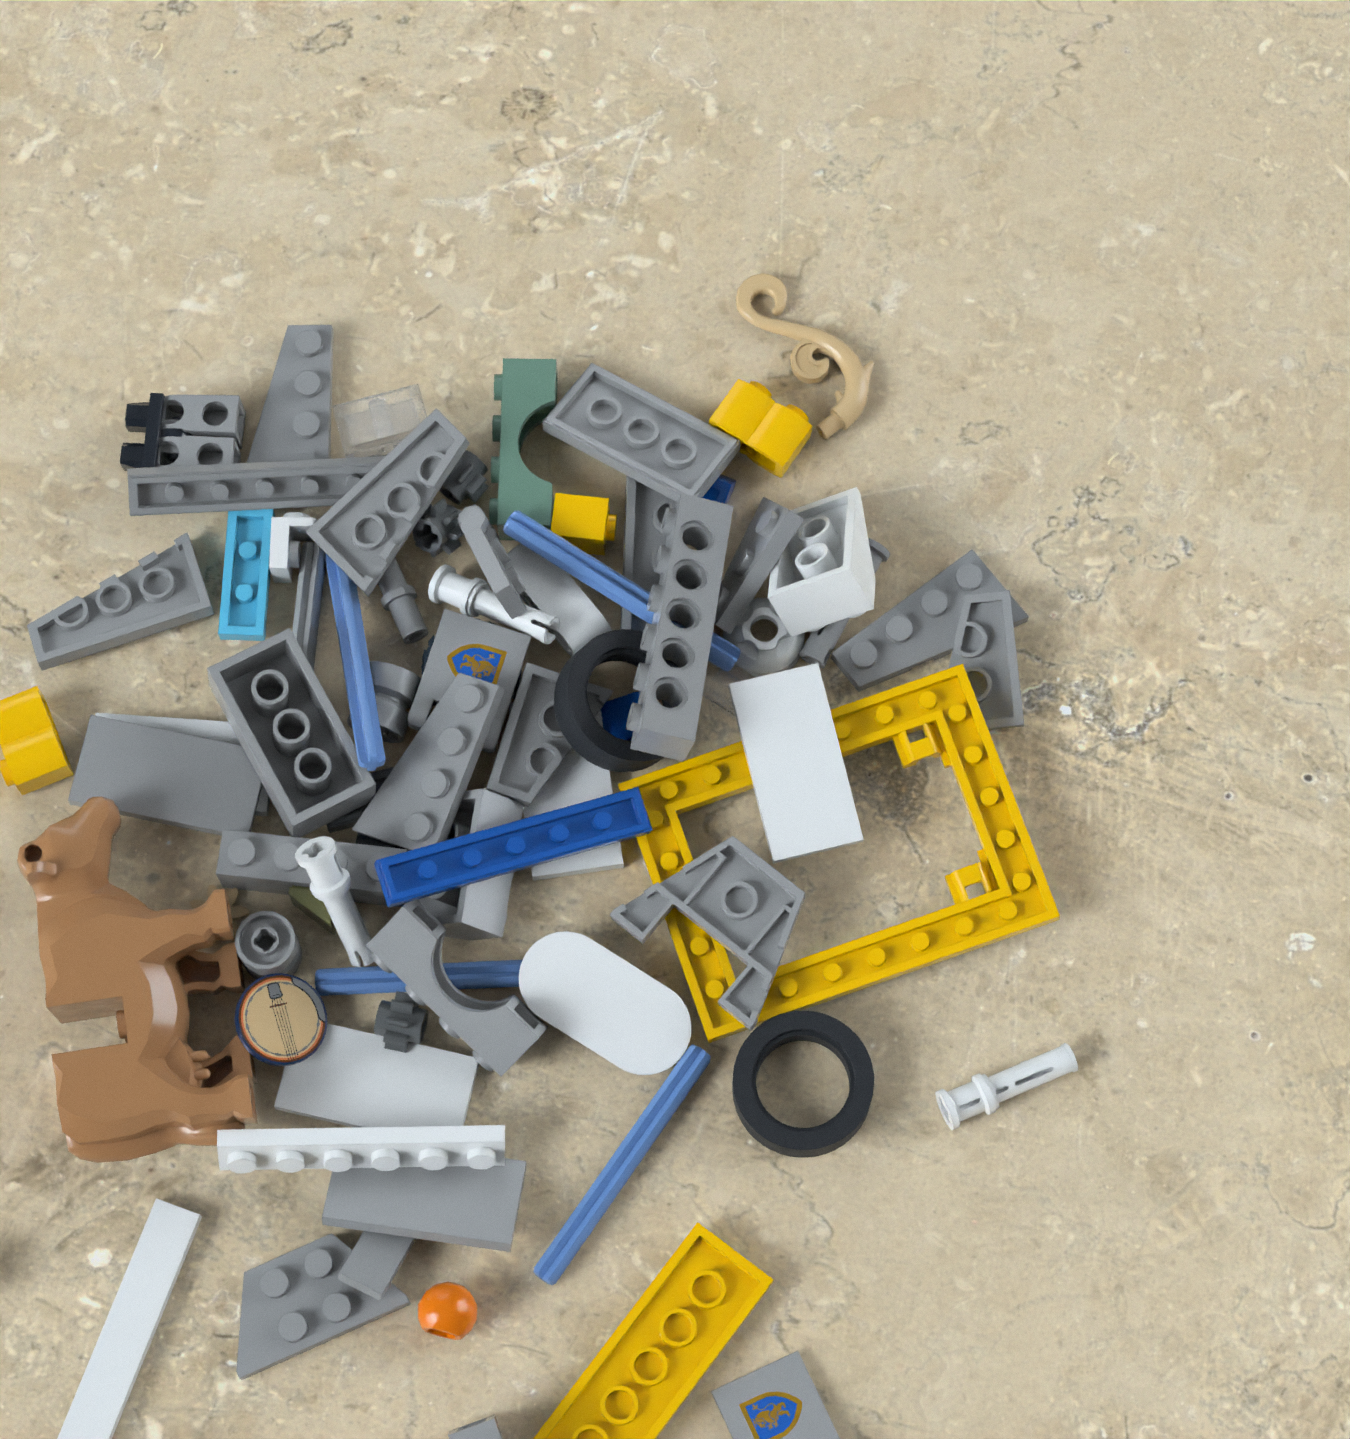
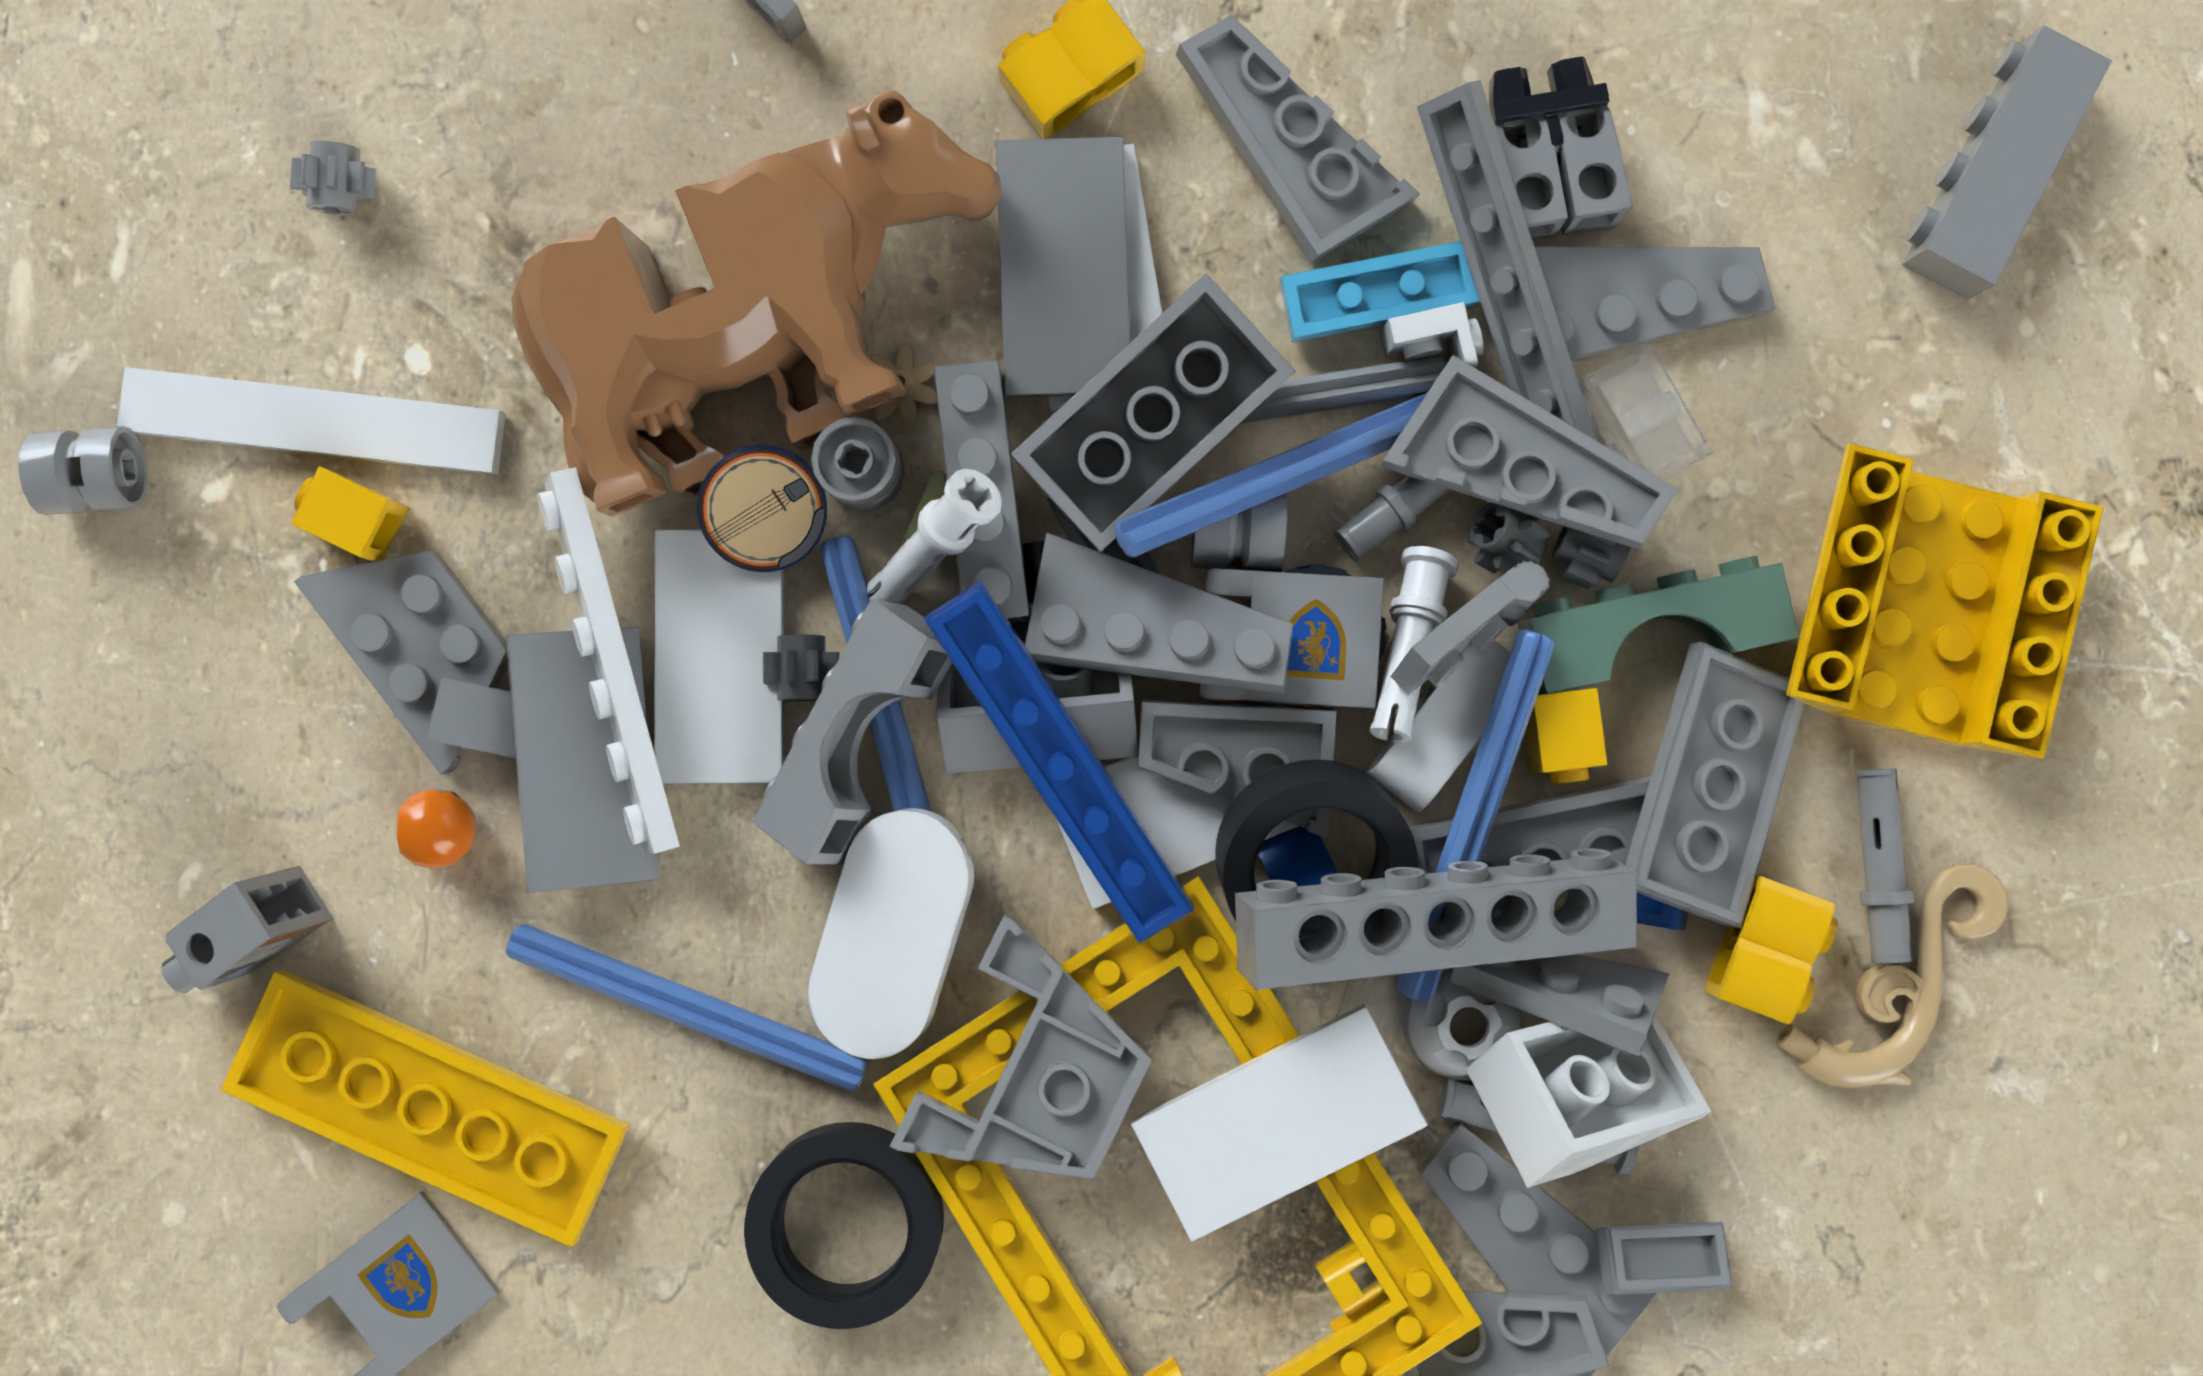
camera: 80 degrees right, 15 degrees up
(200, 1324) = (348, 514): none -> yellow brick
(276, 161) = (2005, 161): none -> light grey brick
(560, 268) = (1943, 606): none -> yellow slope
(723, 344) = (1884, 866): none -> light grey pin
(951, 542) = (1663, 1258): none -> light grey tile

